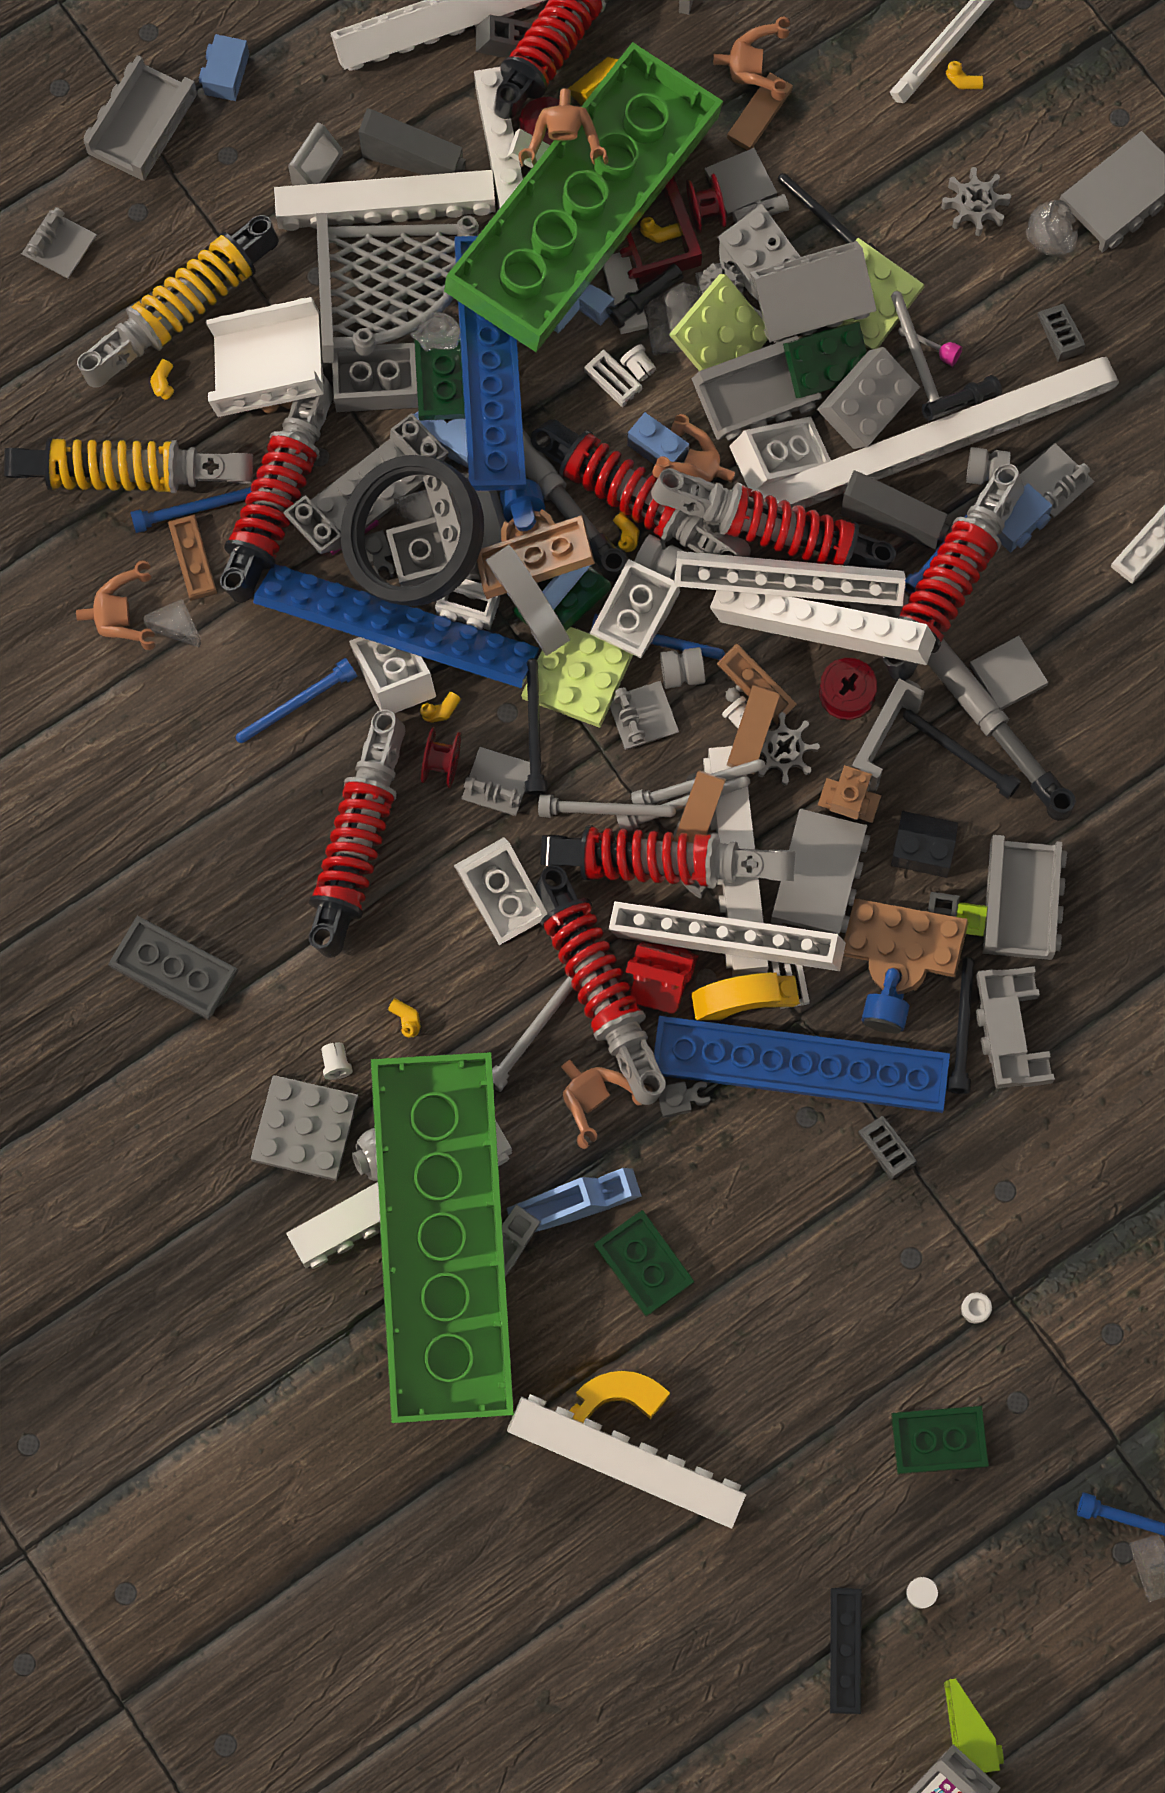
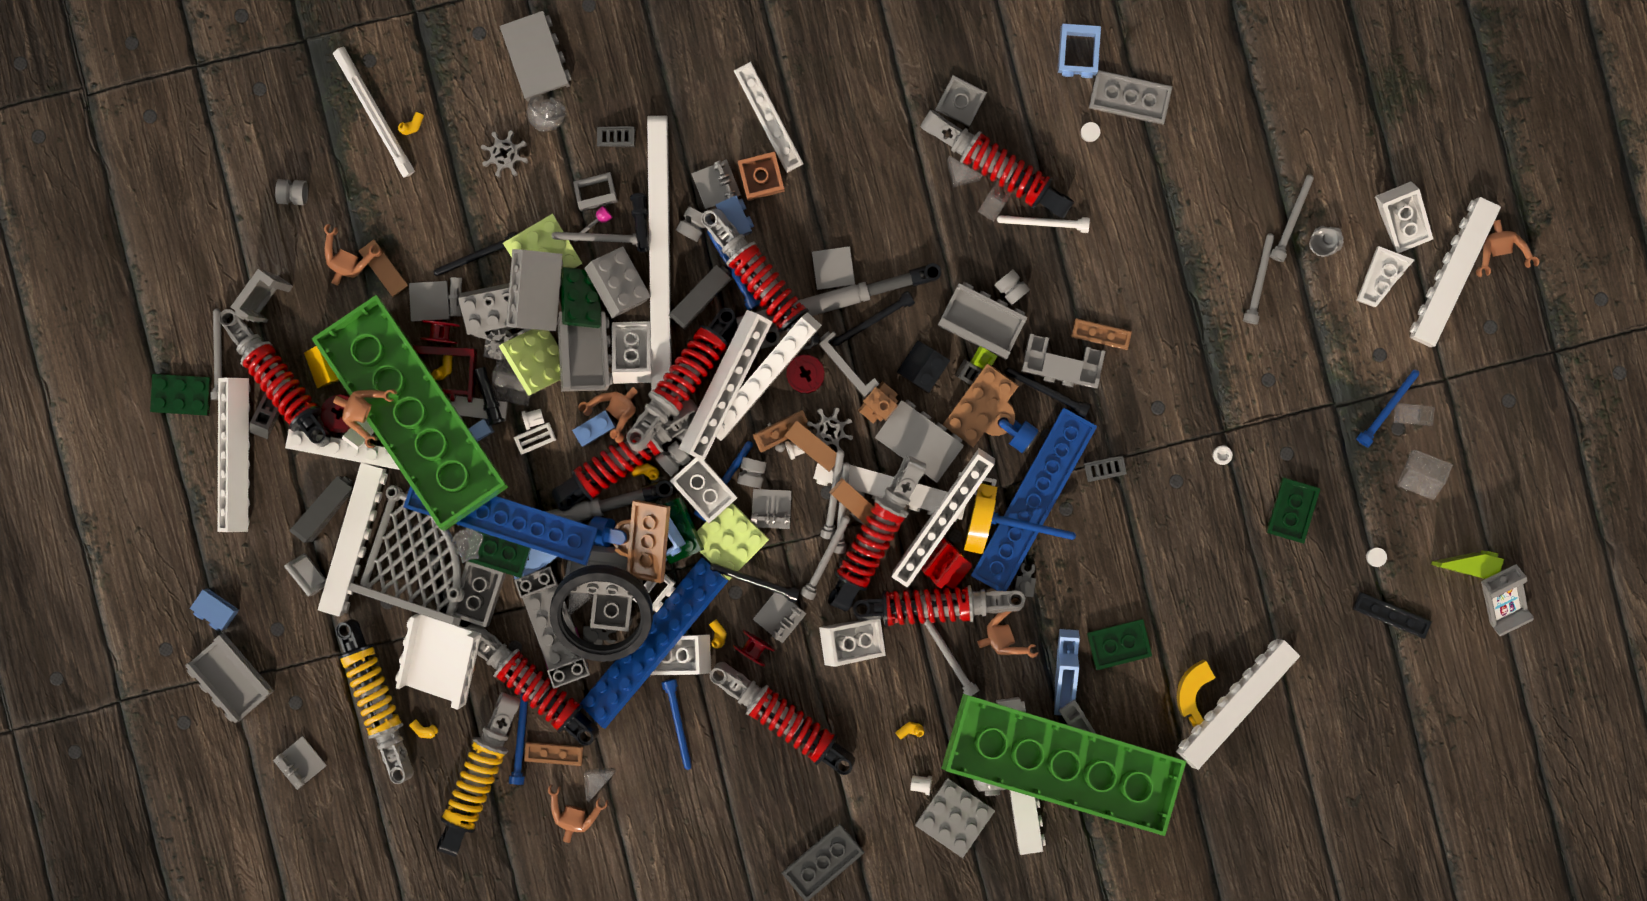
camera: 70 degrees left, 15 degrees up
(528, 599) = (675, 557): light grey slope -> none
(753, 1018) = (1032, 527): none -> blue piece
(964, 337) = (597, 201): none -> light grey tile
(1073, 1612) = (1424, 474): none -> clear slope
(1075, 1070) = (1101, 334): none -> medium nougat tile
(1089, 915) = (1012, 287): none -> light grey wheel
(1092, 529) = (761, 176): none -> nougat brick

